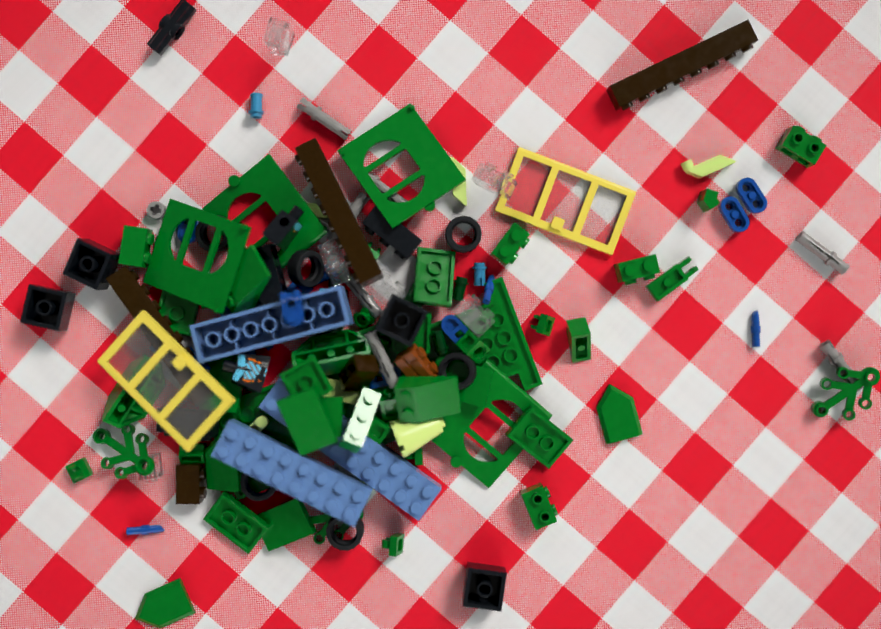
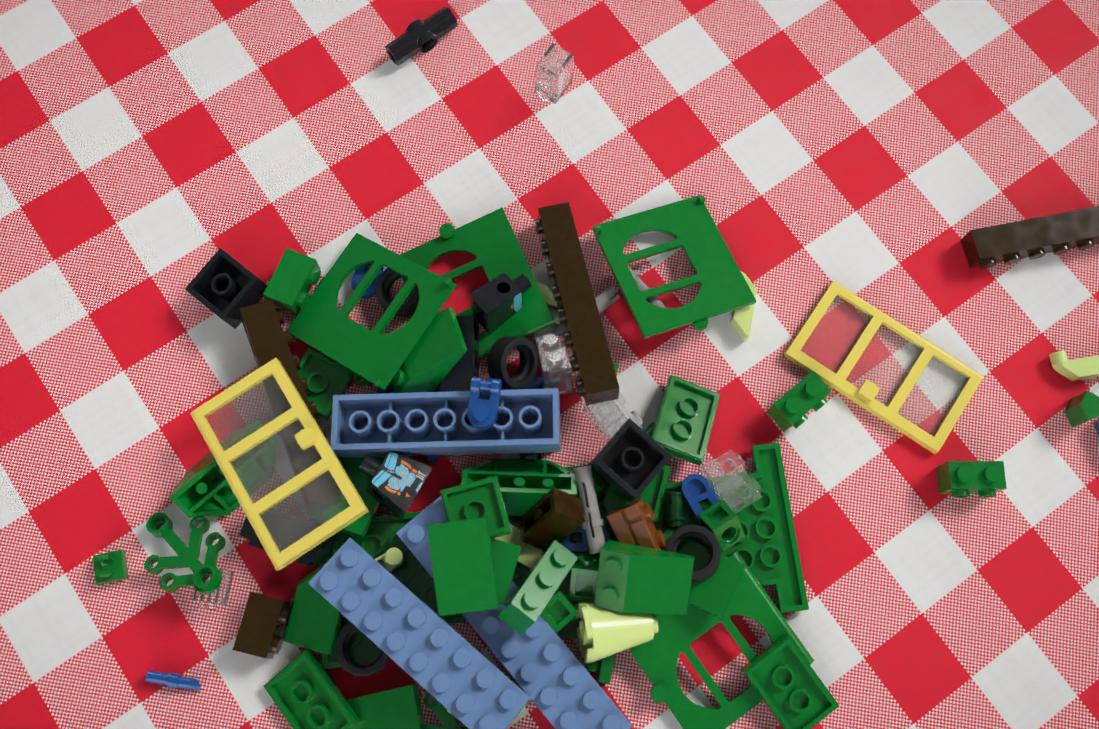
camera: 10 degrees right, 15 degrees down
(47, 307) = (148, 329): black brick -> none
(154, 205) = (333, 237): light grey bush -> none
(196, 455) = (278, 583): green piece -> none
(256, 106) = (498, 156): dark azure pin -> none
(317, 114) = (576, 178): light grey pin -> none
(360, 321) = (566, 453): green plate -> none
(364, 297) = (592, 445): light grey pin -> none
(399, 238) = (646, 356): black brick -> none
(459, 289) = (716, 443): dark green pin -> none
(477, 230) = (743, 355): black tyre -> none
(479, 274) = (747, 432): dark azure pin -> none
(488, 290) = (757, 455): blue piece -> none
(494, 181) = (794, 312): clear brick -> none
(544, 325) = (826, 525): green tile -> none
(579, 339) = (872, 558): green slope -> none
(618, 416) = (910, 687): green tile -> none
(670, 280) = (1014, 507): green hinge -> none

